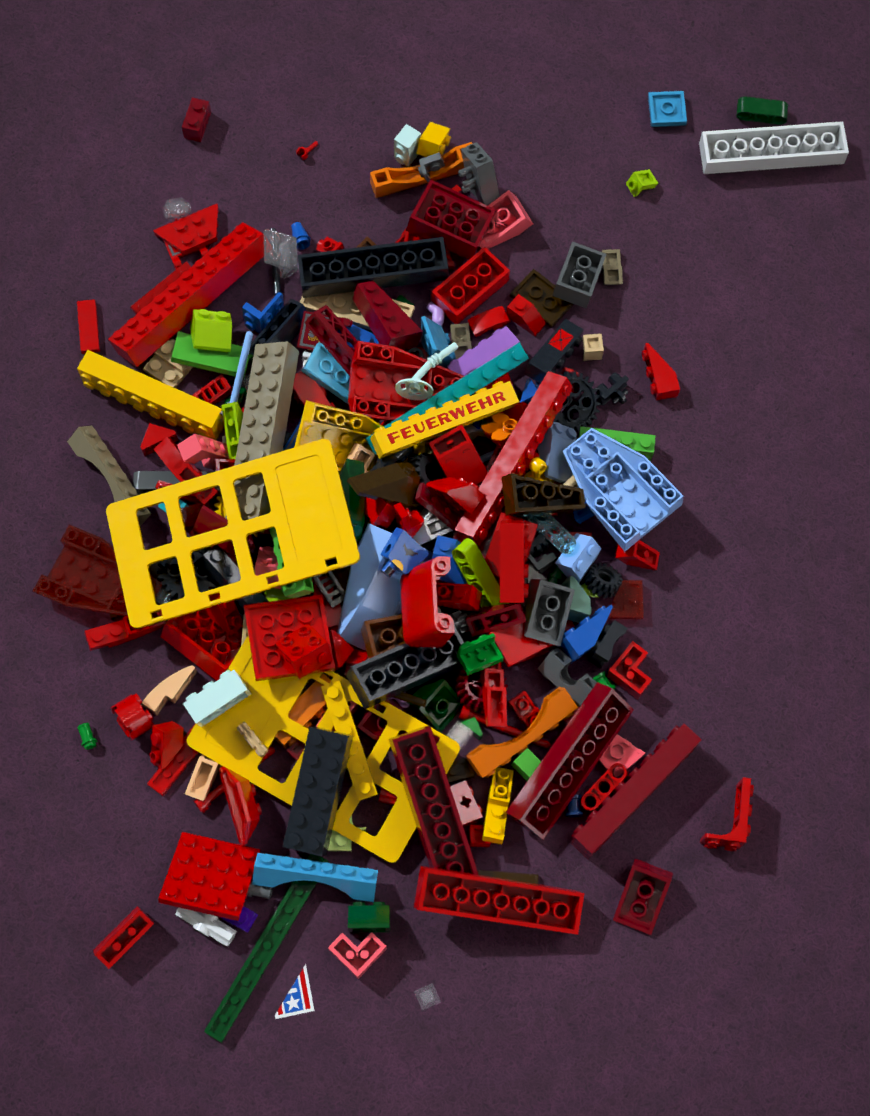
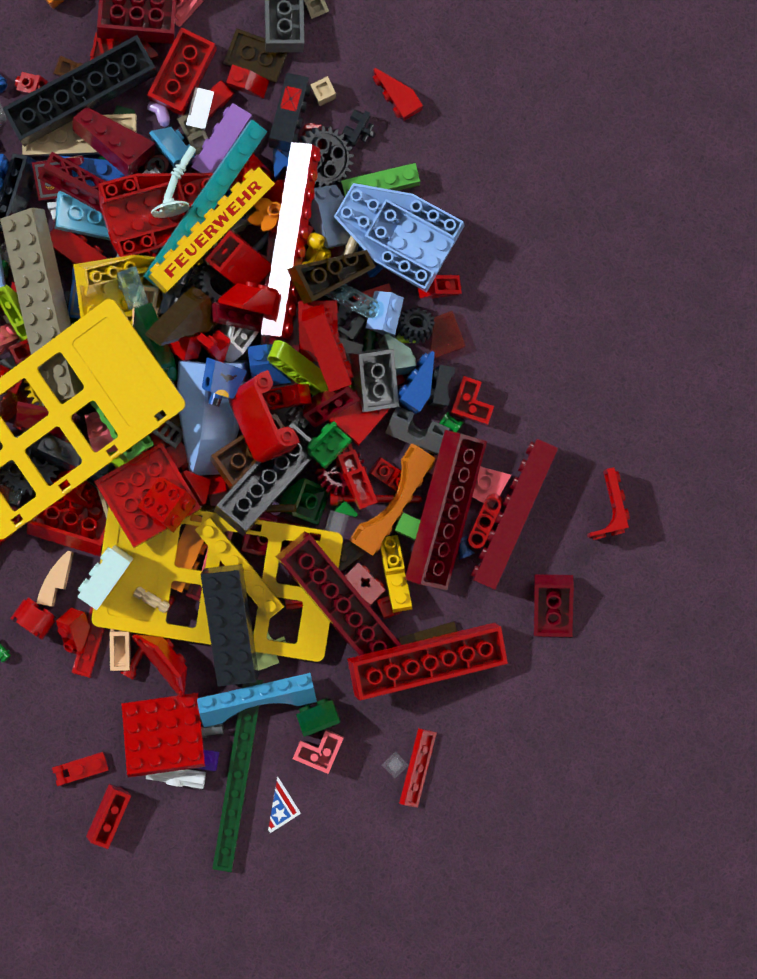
camera: 15 degrees left, 15 degrees up
(116, 881) = (81, 768): none -> red plate
(351, 440) = (132, 287): none -> clear light blue slope
(449, 1008) = (418, 768): none -> red plate
(474, 320) = (200, 108): none -> white slope

